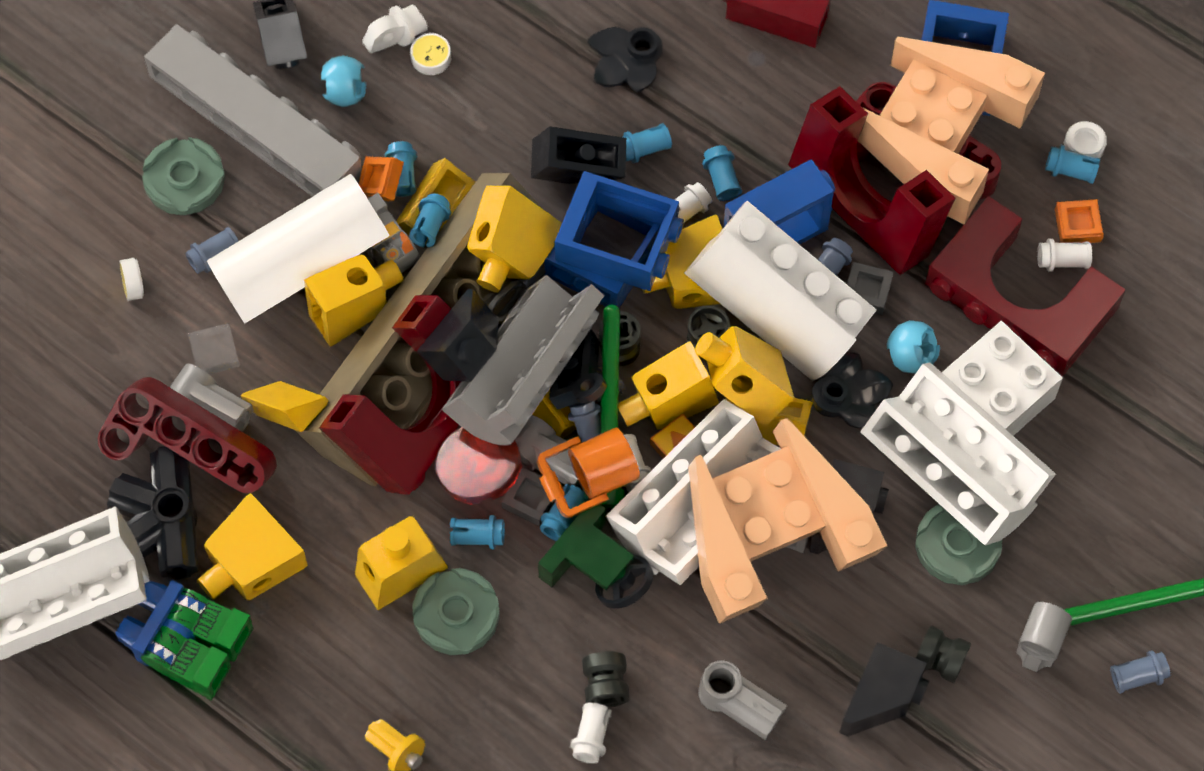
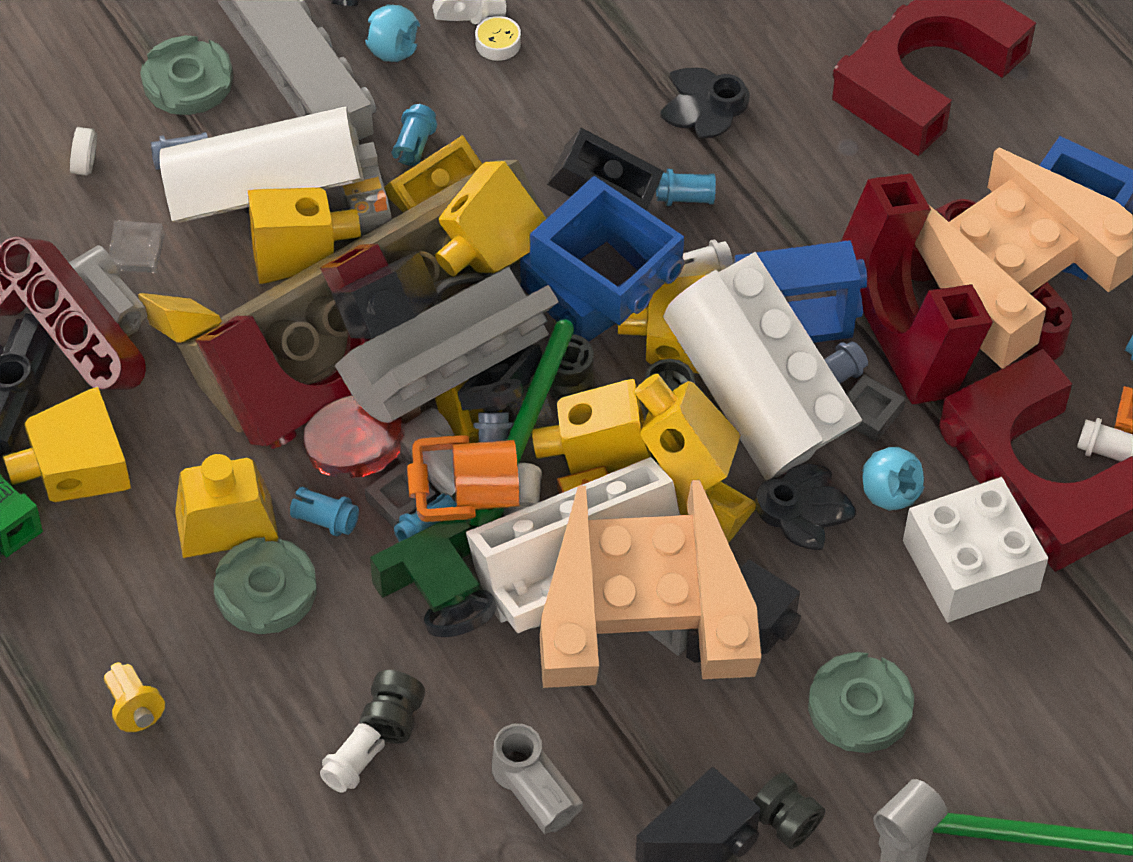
camera: 20 degrees right, 10 degrees down
(380, 176) = (387, 132): orange tile -> none
(433, 211) = (424, 180): dark azure pin -> none
(719, 163) = (758, 232): dark azure pin -> none
(959, 455) = (895, 604): white brick -> none

